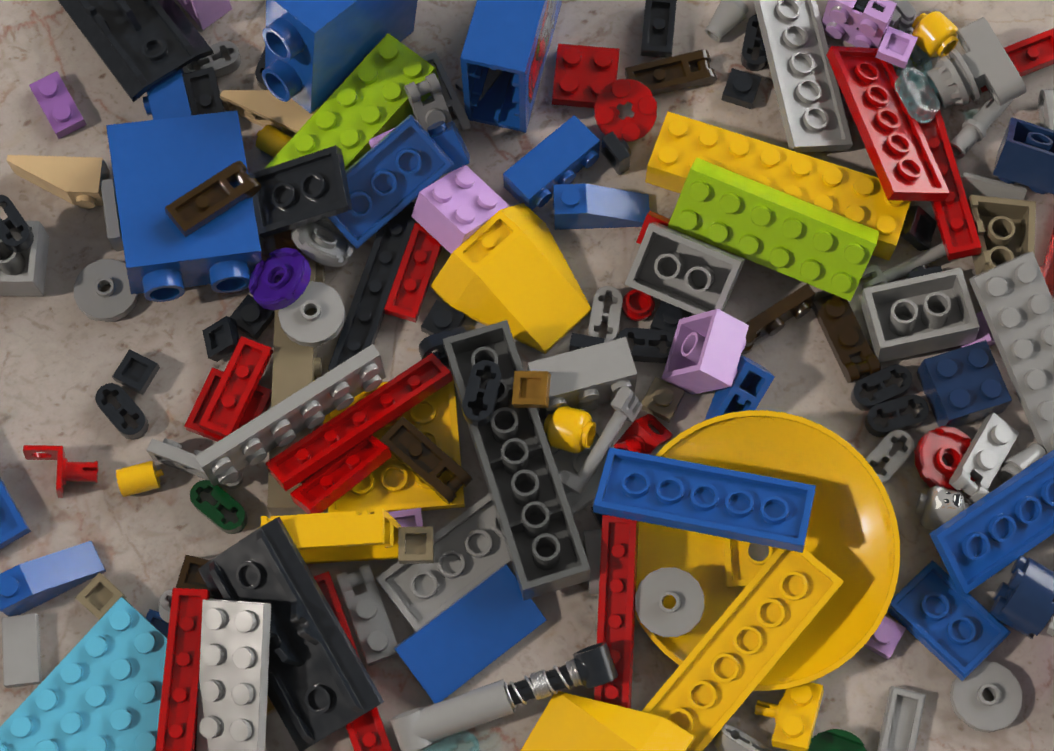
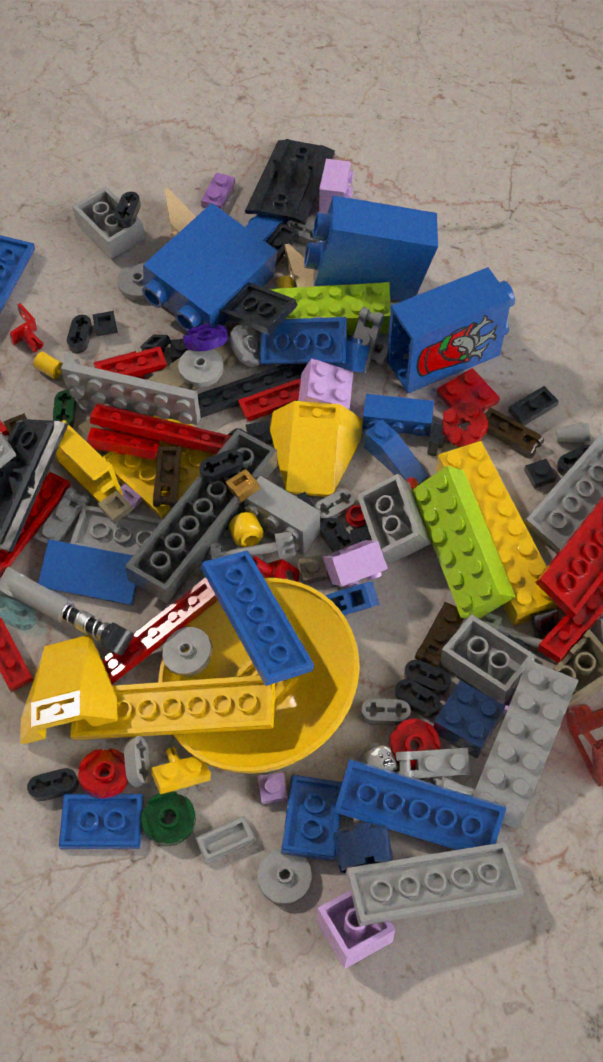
camera: 50 degrees right, 10 degrees down
(212, 198) = (215, 271): dark brown plate -> none
(773, 318) = (413, 587): dark brown plate -> none

